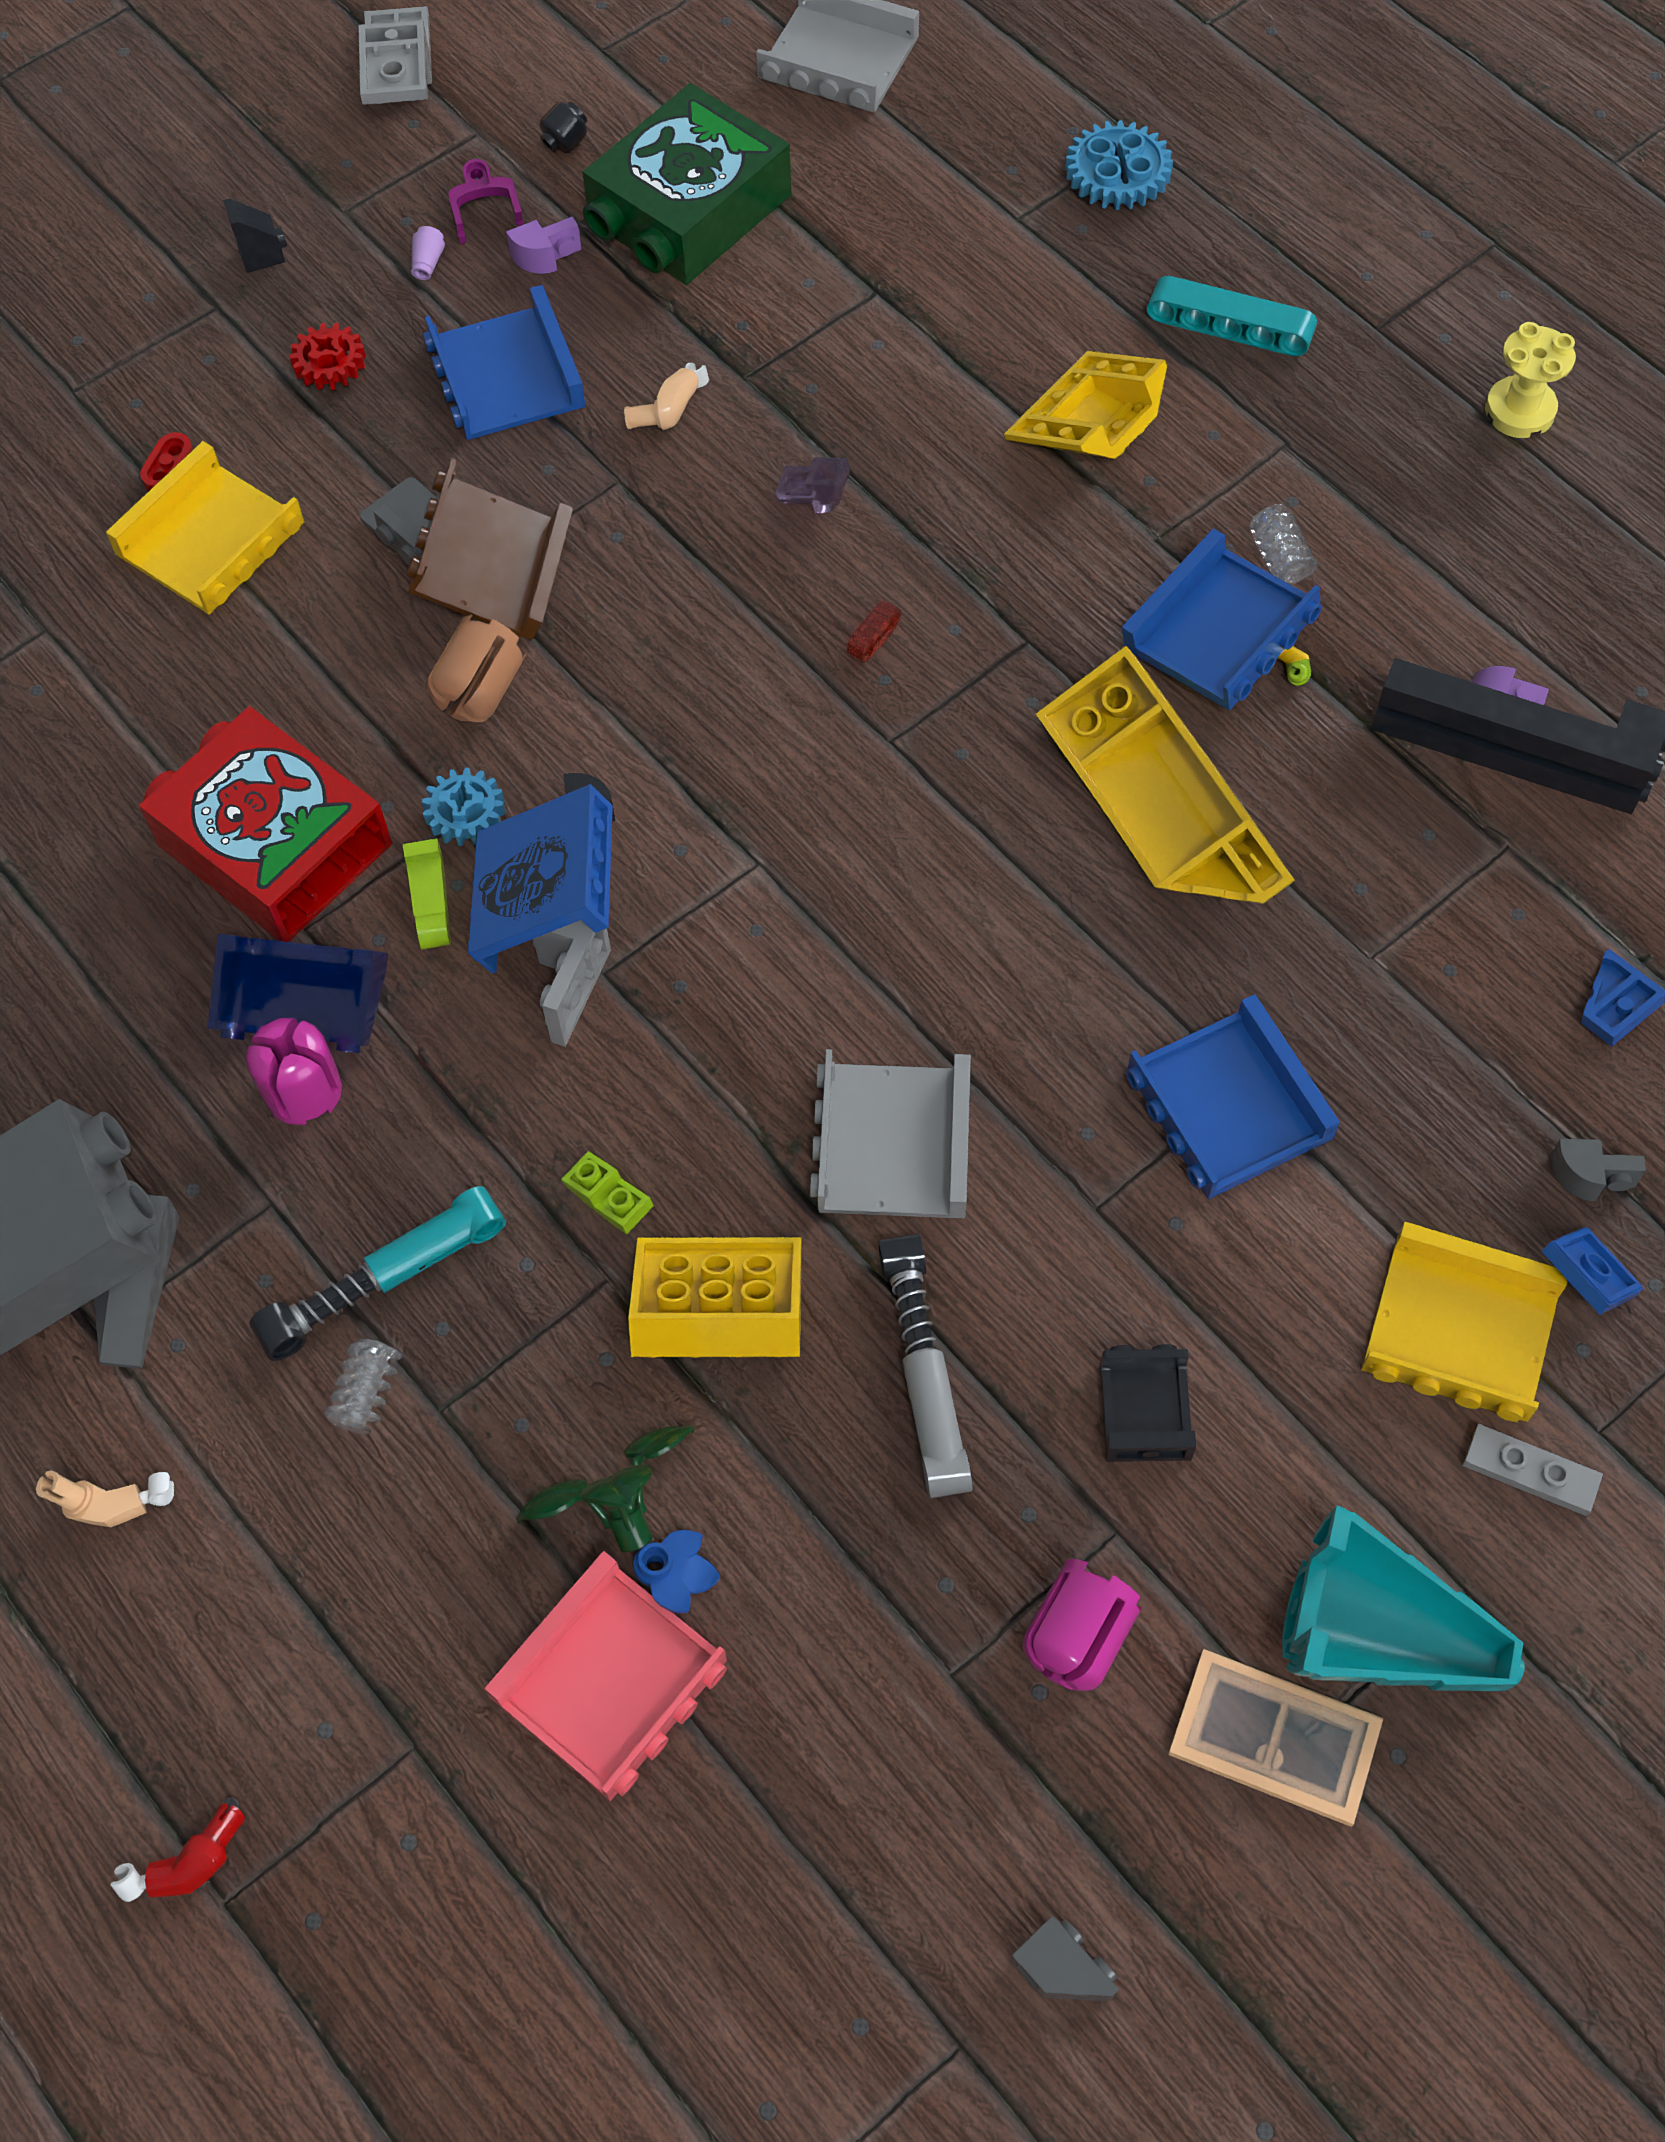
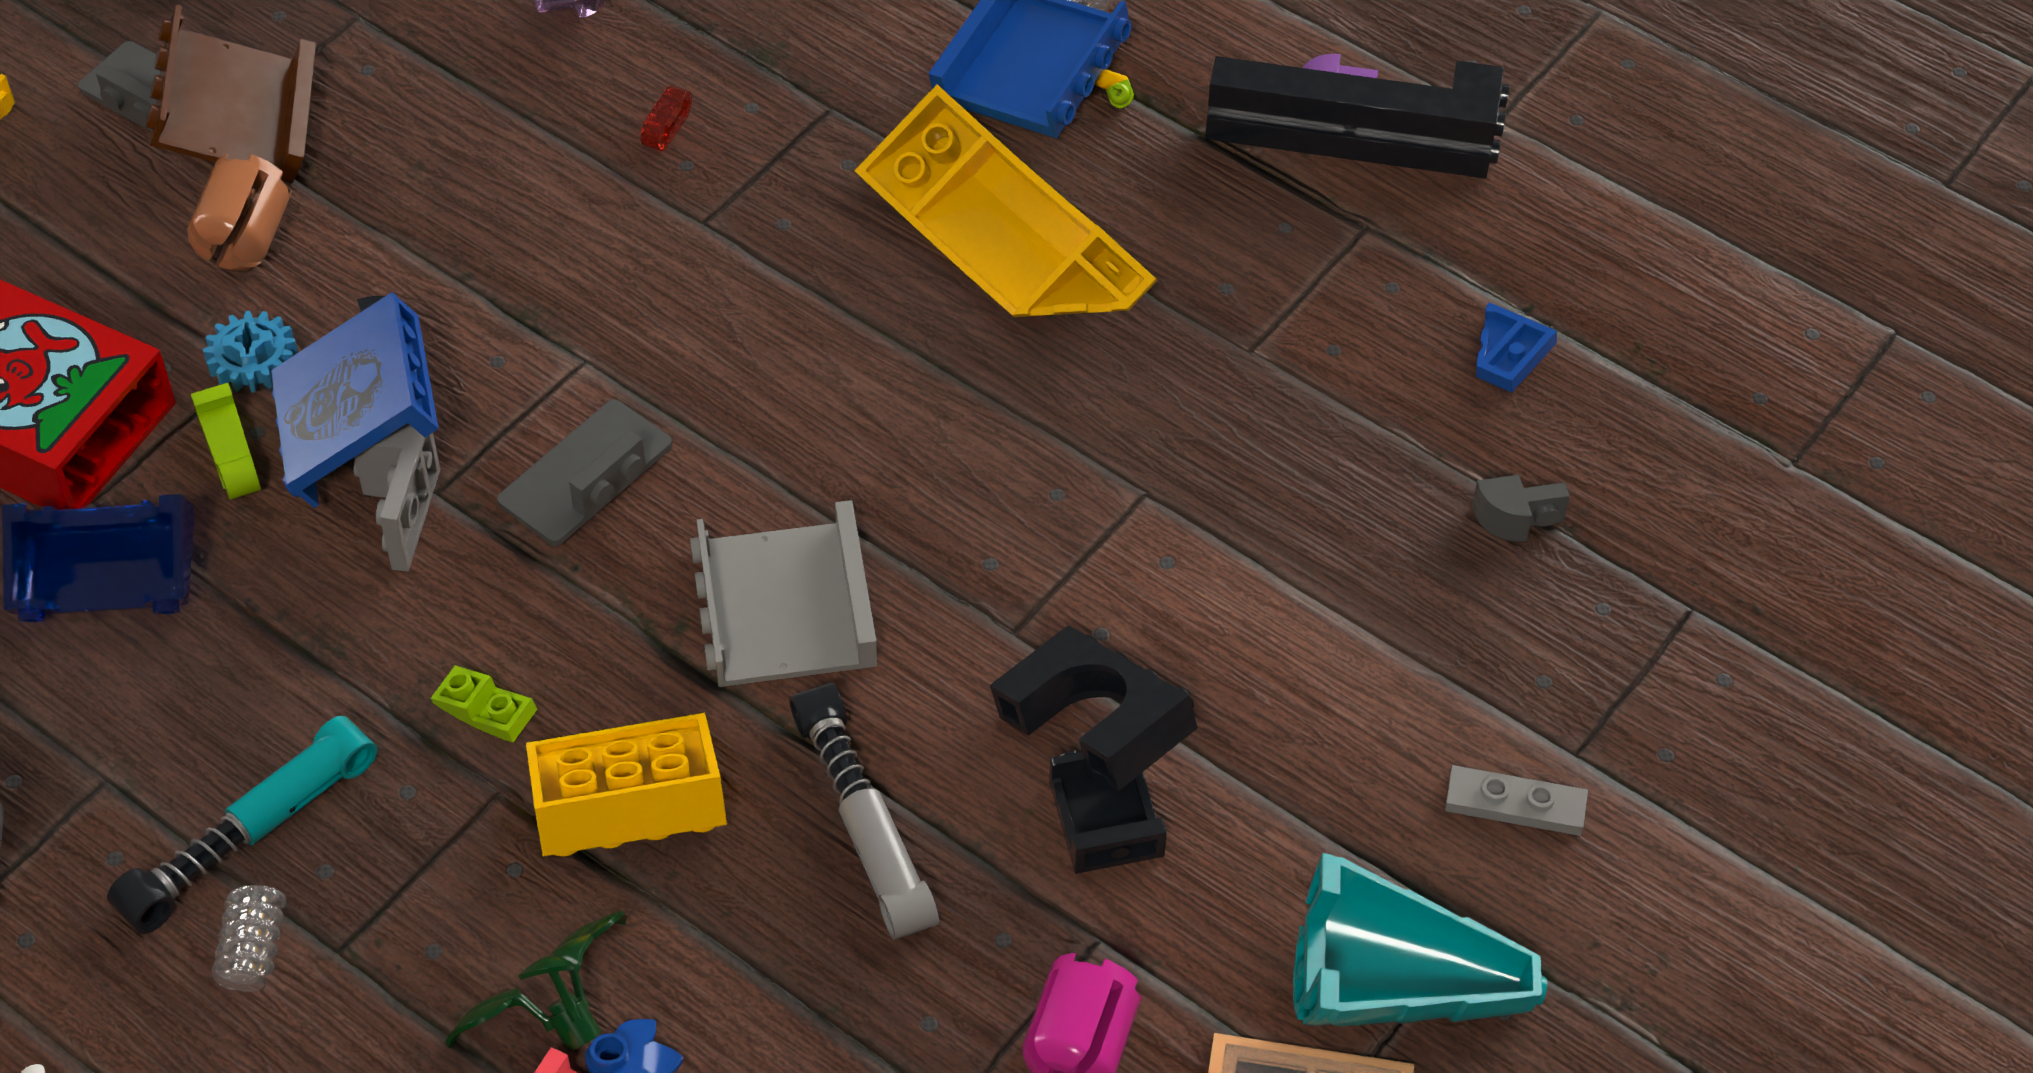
camera: 15 degrees left, 10 degrees down
(294, 1070) = (111, 634): dark pink cylinder -> none
(737, 977) = (584, 472): none -> dark grey bracket
(1145, 1261) = (1078, 667): none -> black arch
(1233, 1099) = (1137, 503): blue panel -> none
(1464, 1322) = (1418, 671): yellow panel -> none
(1592, 1270) = (1536, 598): blue tile -> none

